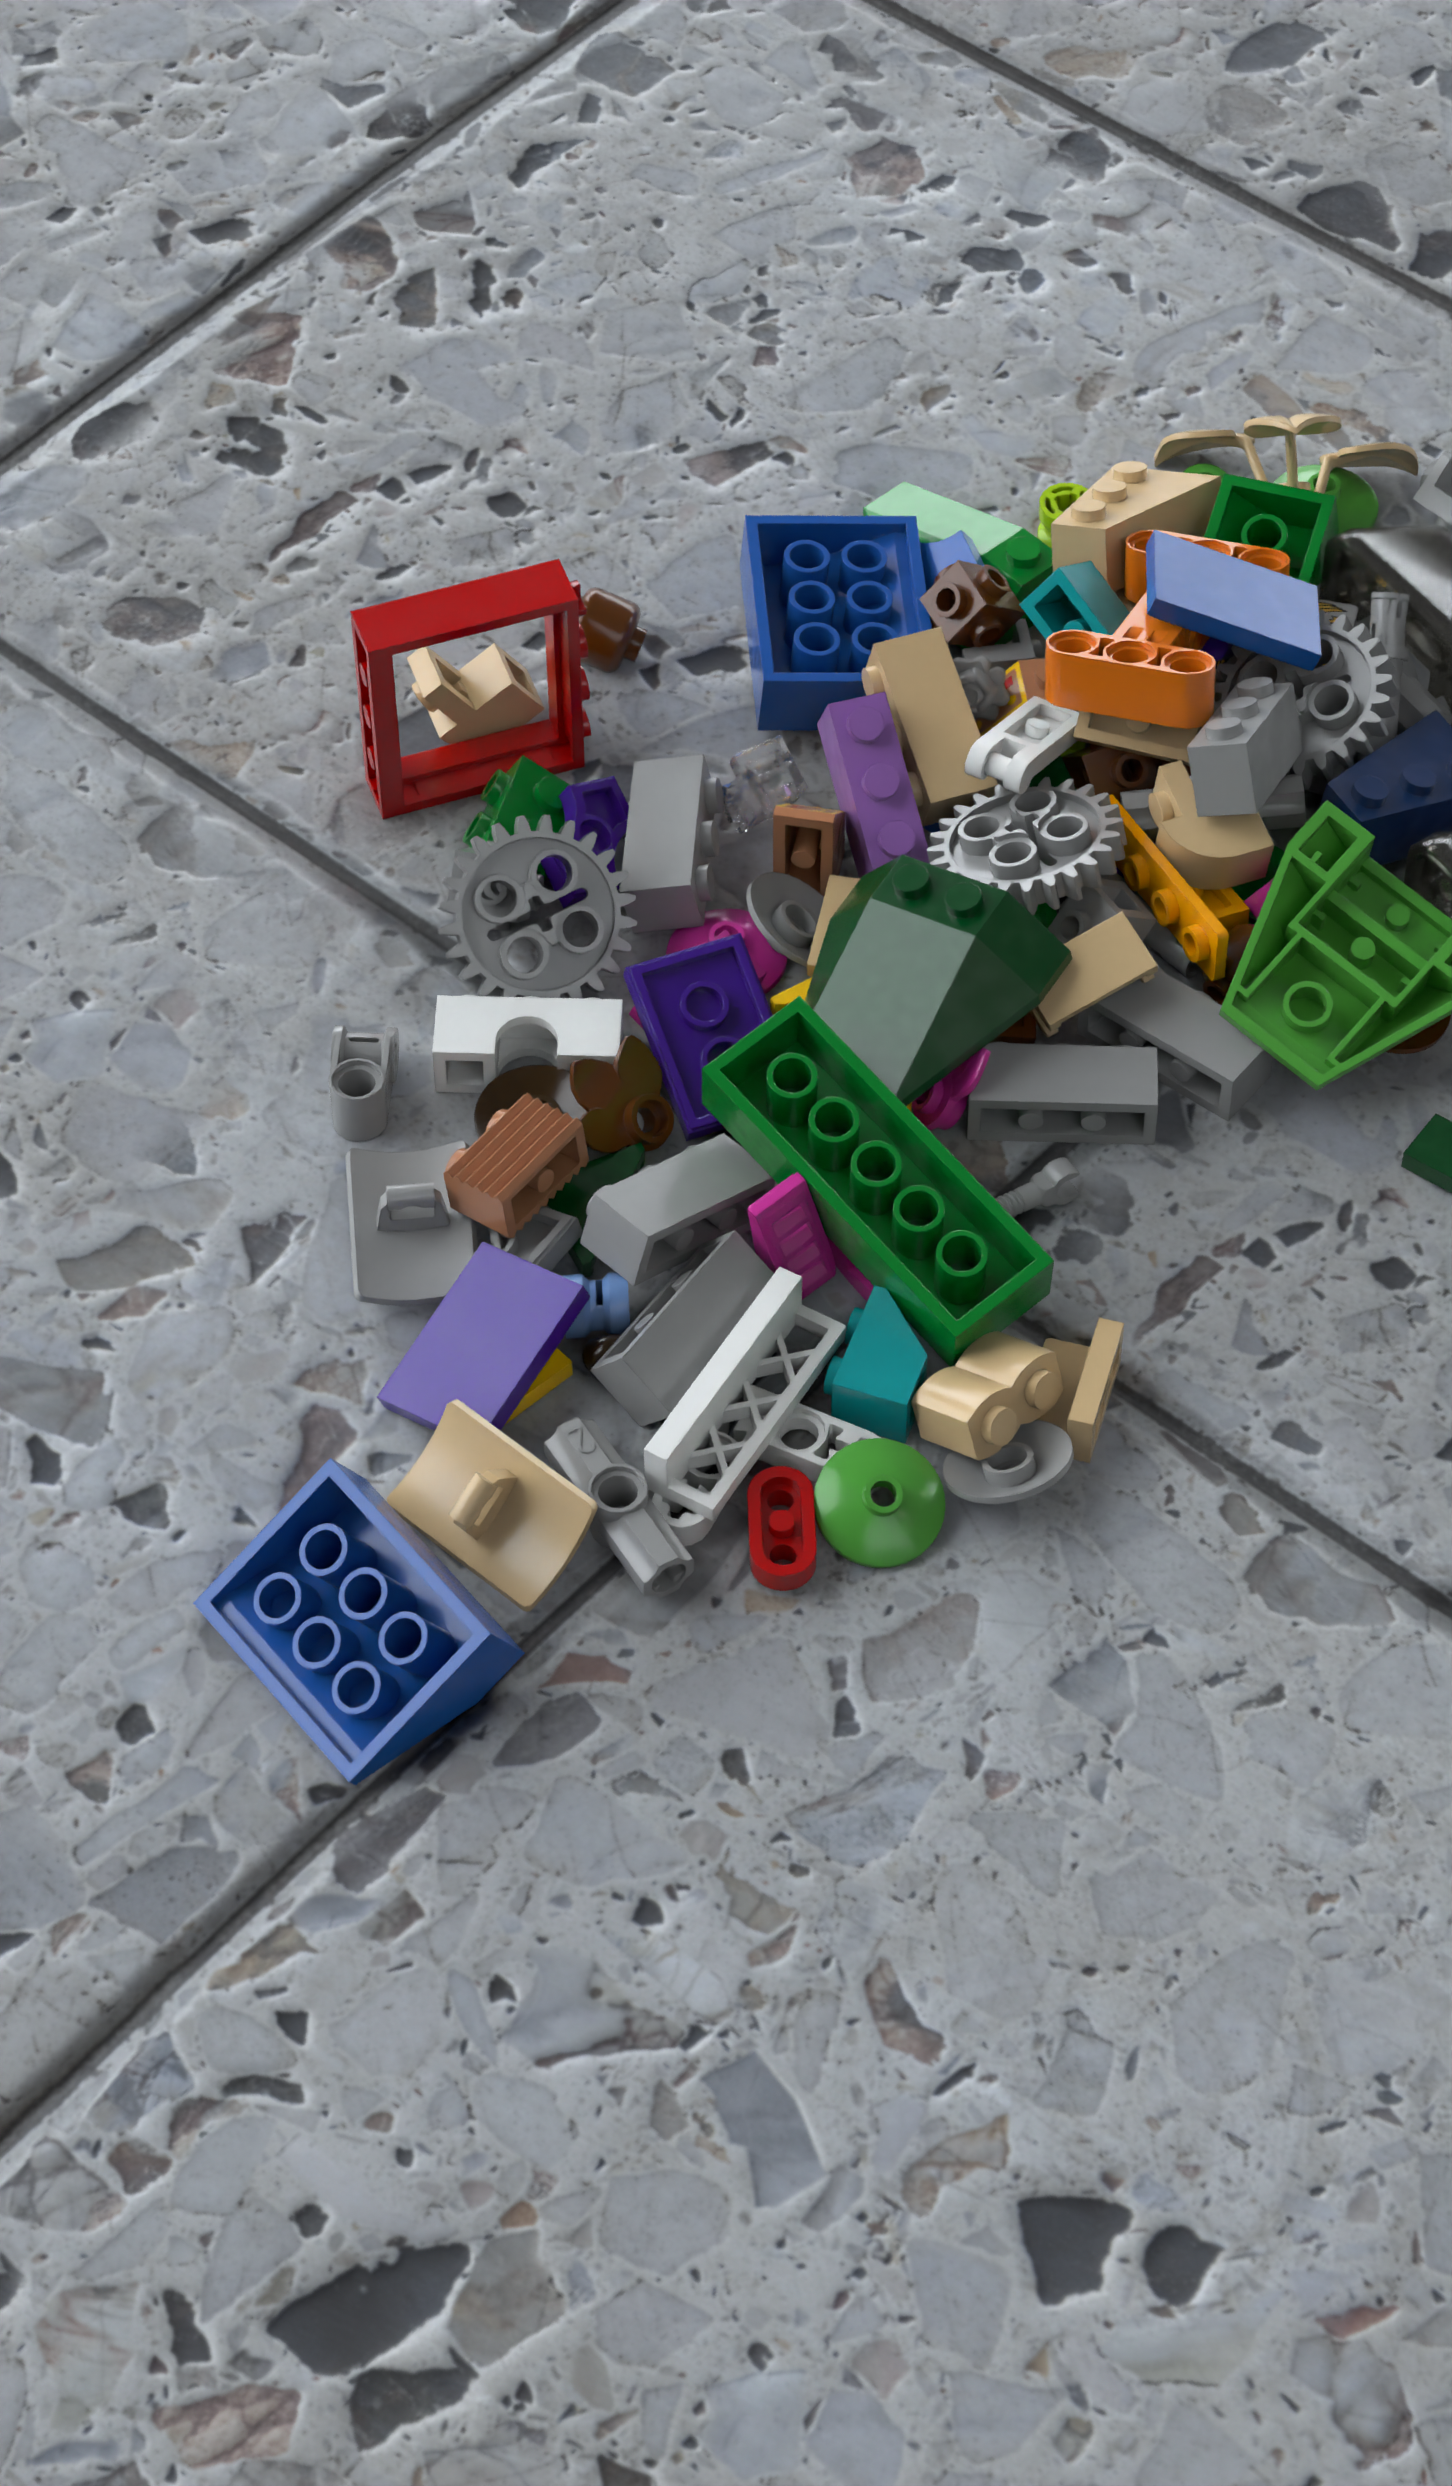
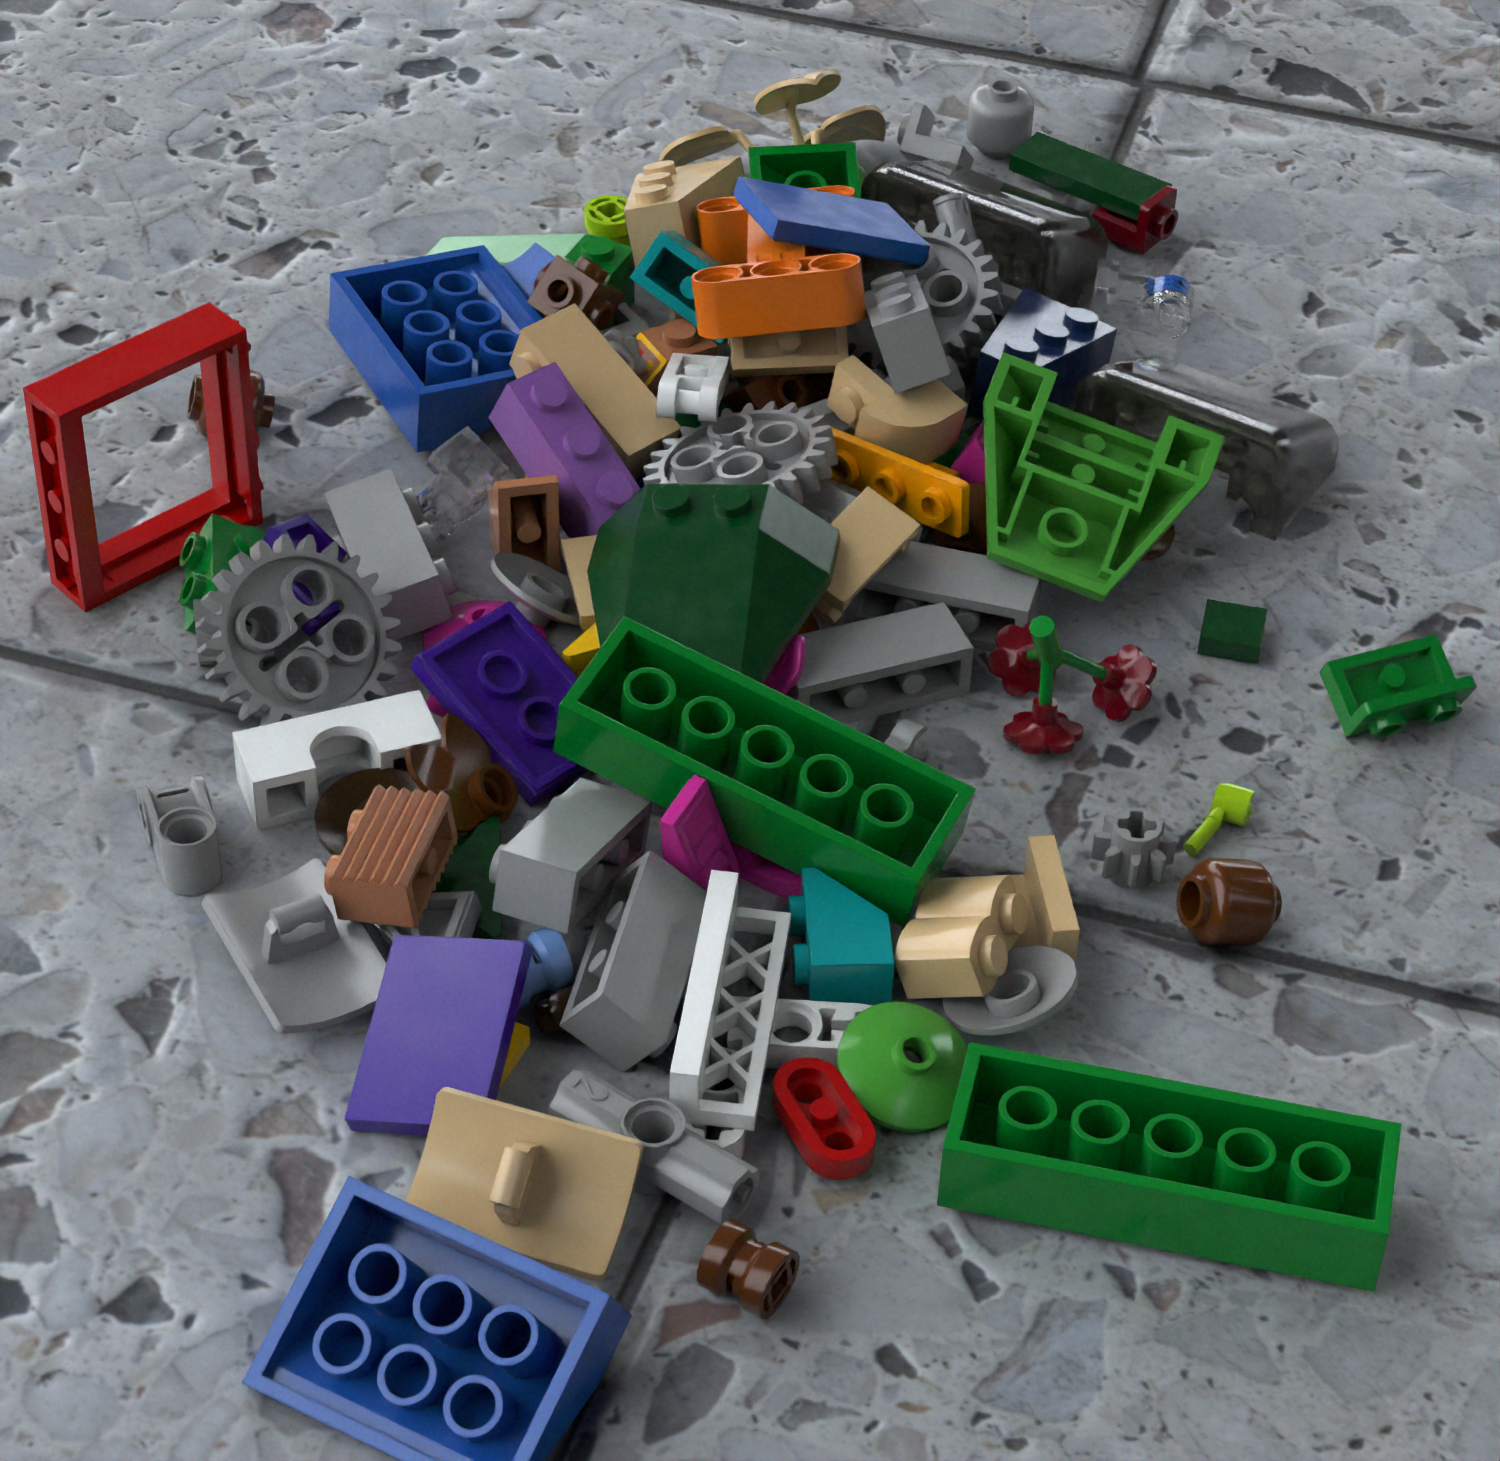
camera: 25 degrees left, 10 degrees down
(478, 699) = (139, 481): tan brick -> none
(638, 1638) = (748, 1268): none -> reddish brown wheel
(1051, 1673) = (1171, 1166): none -> green brick
(1205, 1355) = (1133, 848): none -> light grey gear
(1220, 1130) = (1028, 661): none -> dark red plant
(1262, 1437) = (1228, 902): none -> reddish brown head
(1327, 1336) = (1230, 805): none -> lime hand

